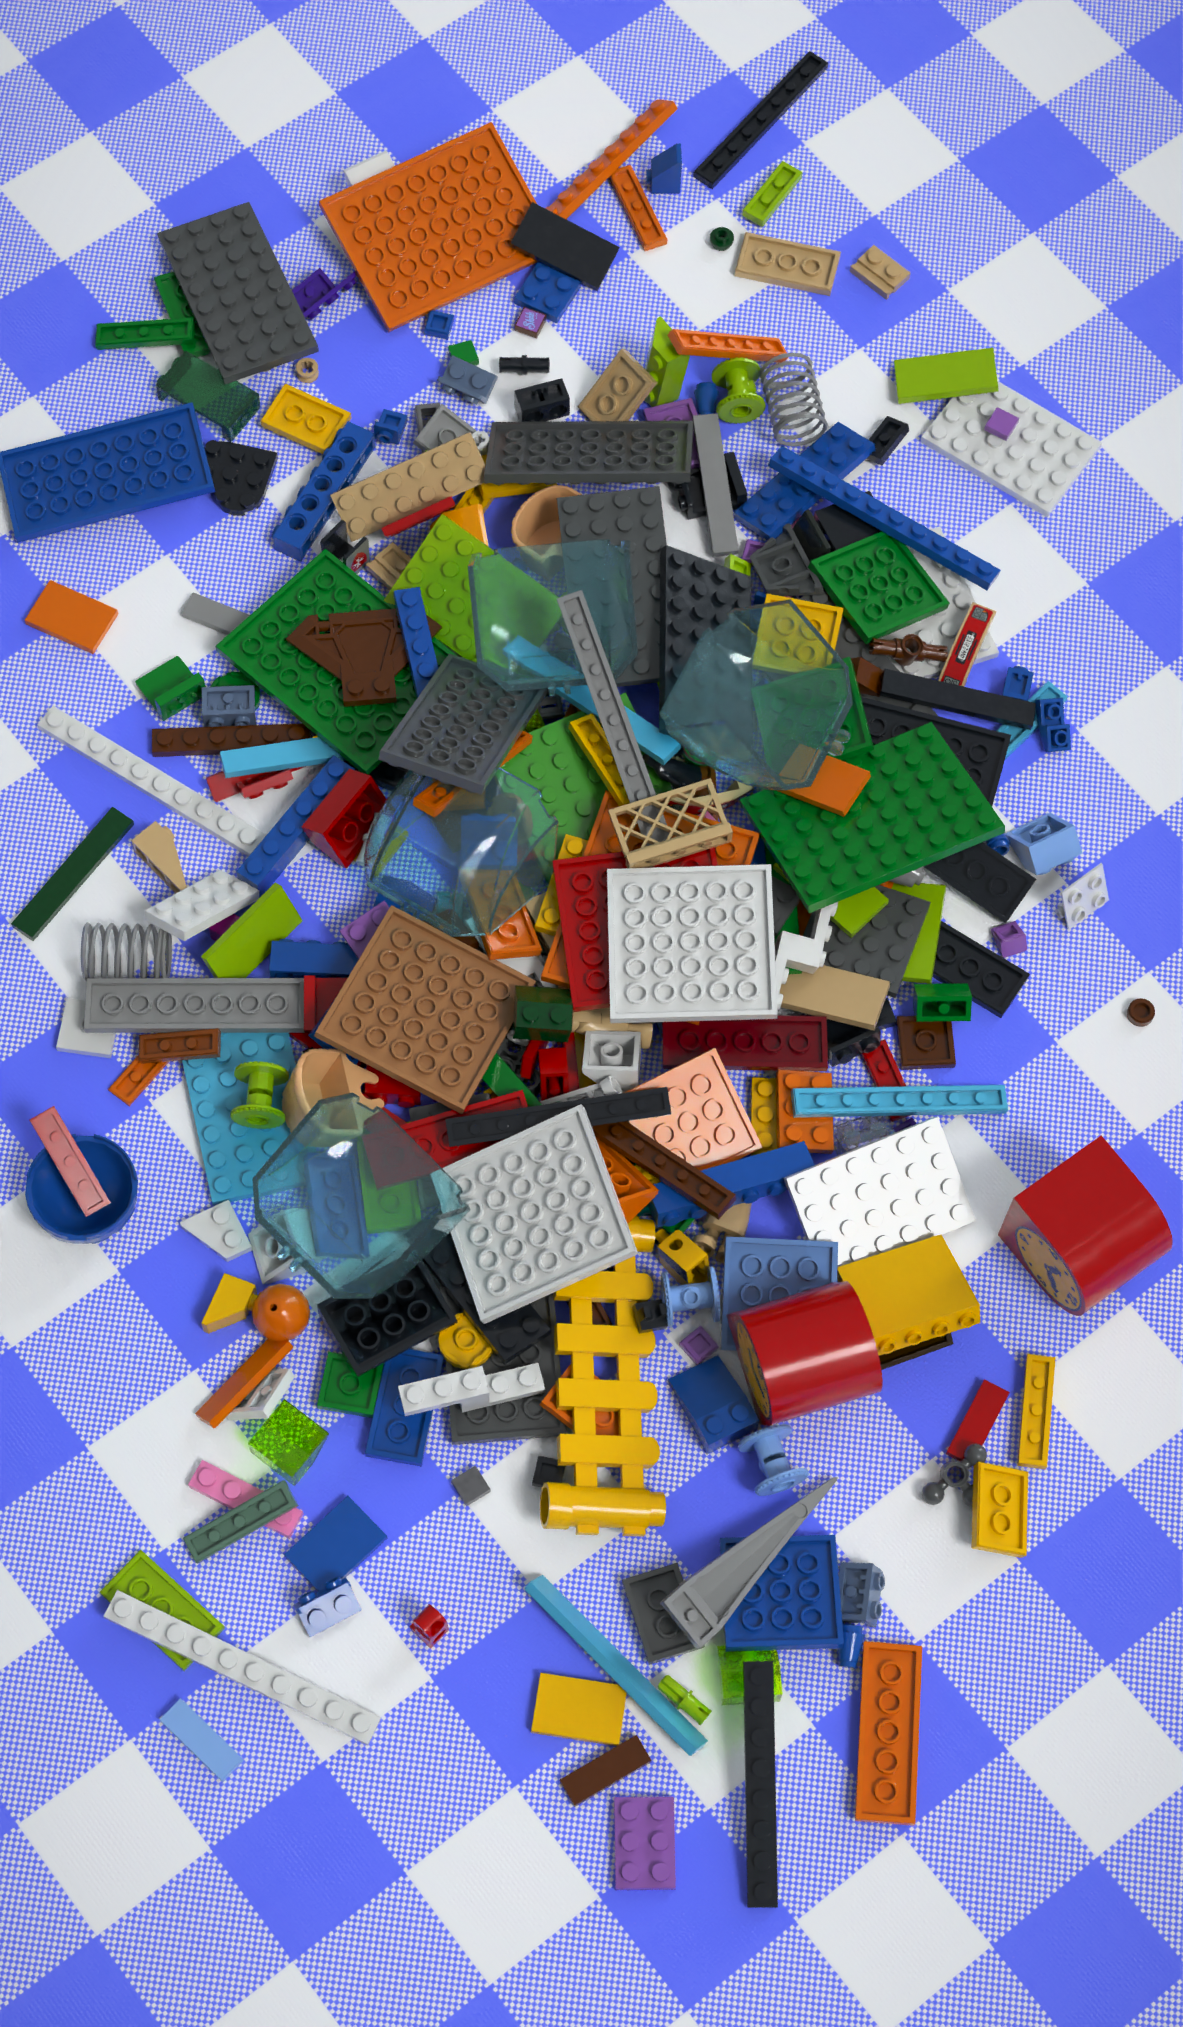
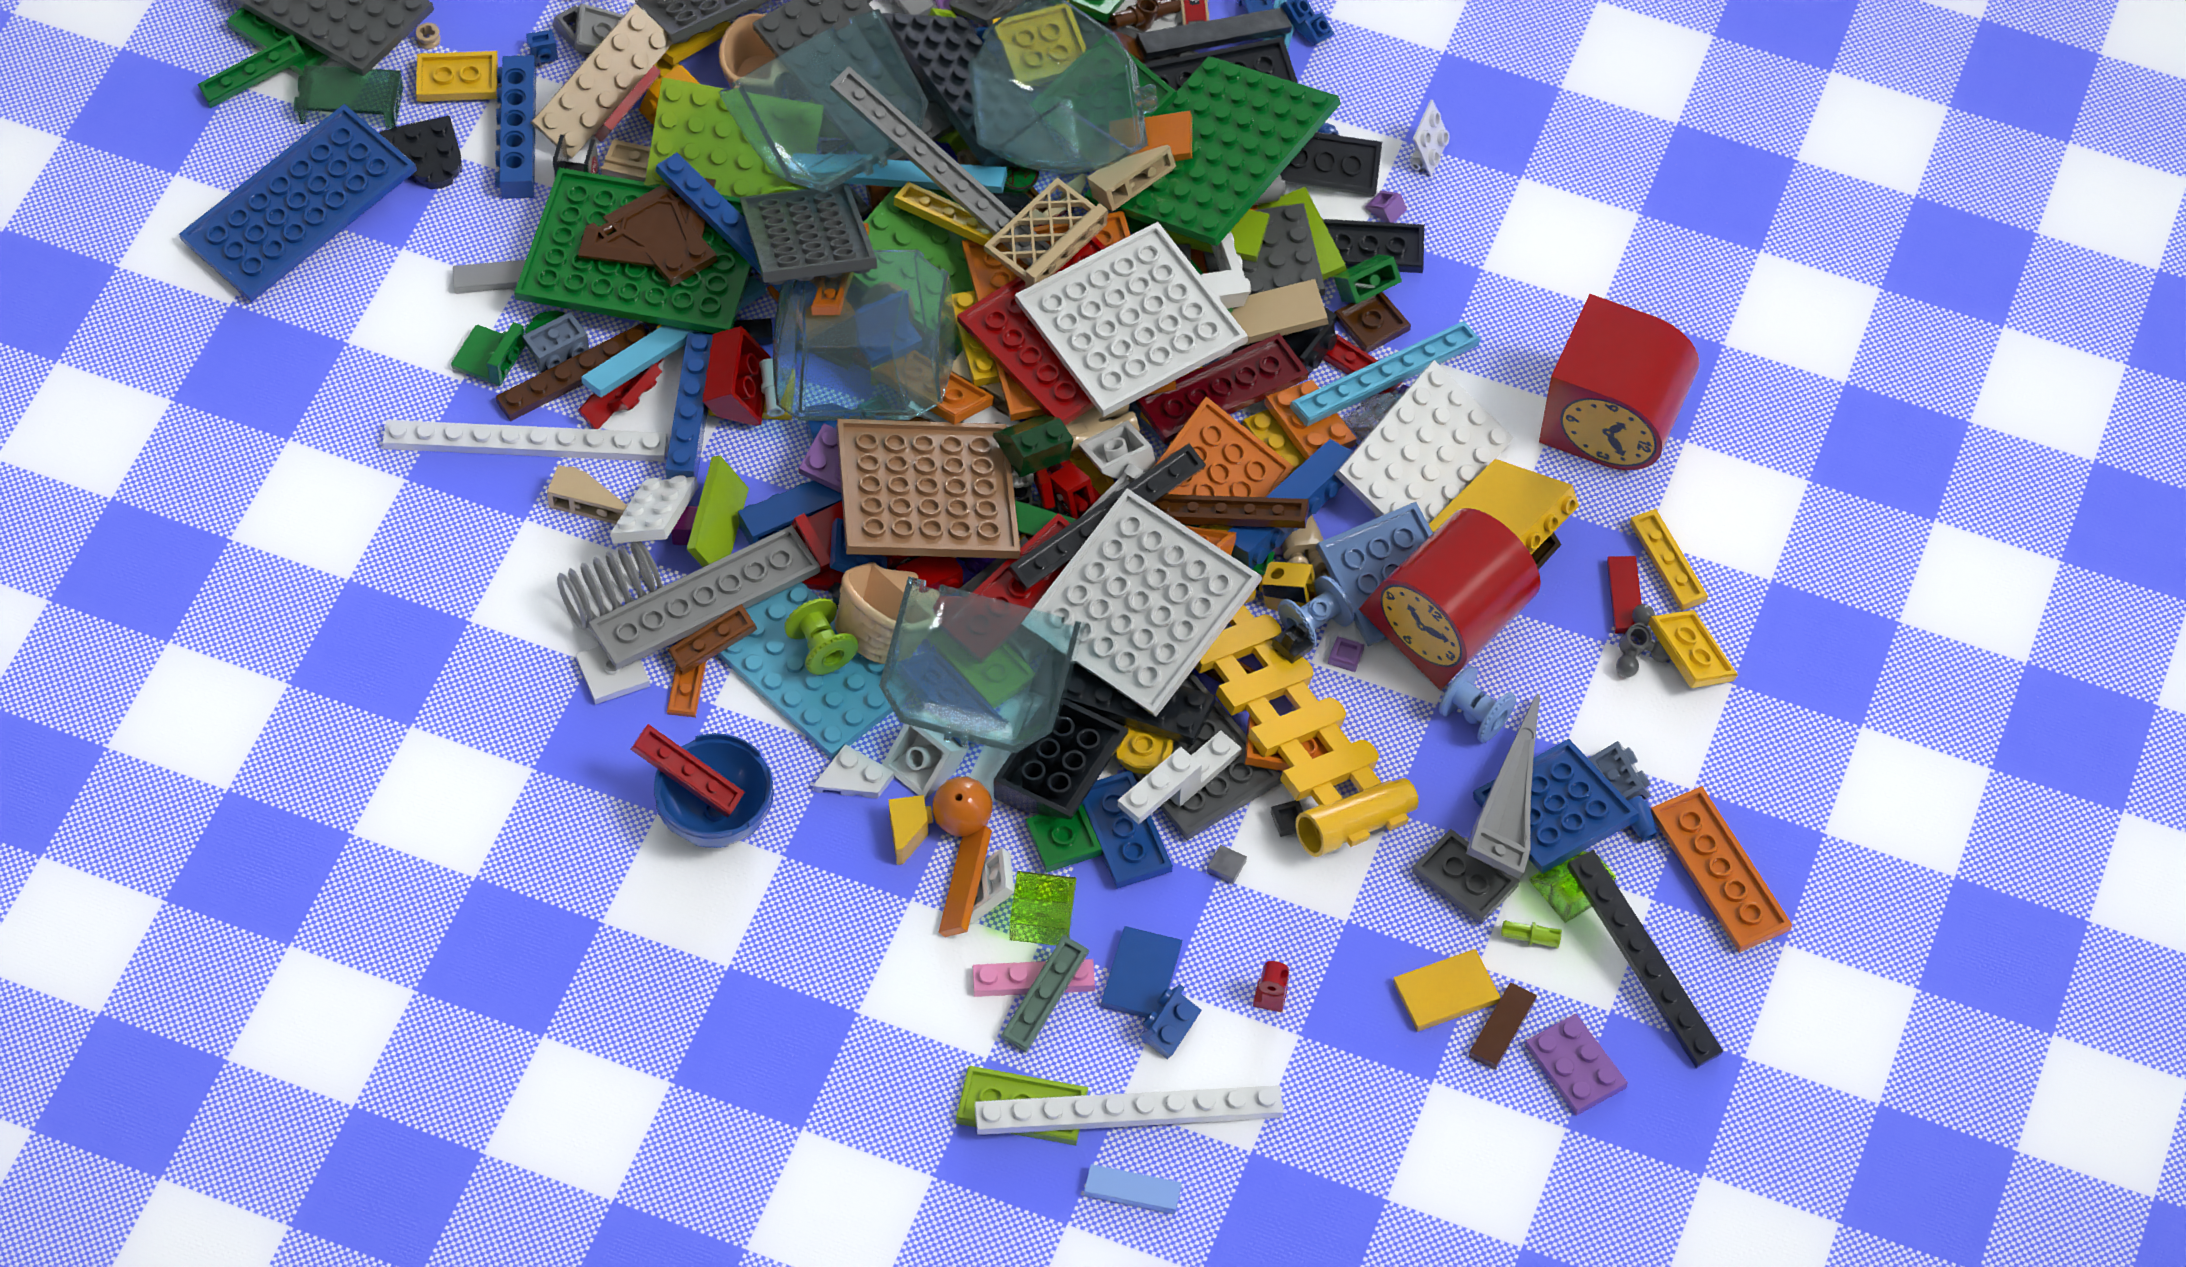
camera: 30 degrees left, 10 degrees down
(71, 617) = (349, 340): orange tile -> none
(72, 874) = (505, 551): dark green tile -> none
(616, 1665) = (1454, 936): medium azure tile -> none
(714, 1404) = (1394, 691): blue slope -> none
(780, 807) = (1130, 176): none -> tan slope
(1045, 843) = (1367, 113): light blue slope -> none
(1141, 1012) = (1538, 211): reddish brown tile -> none

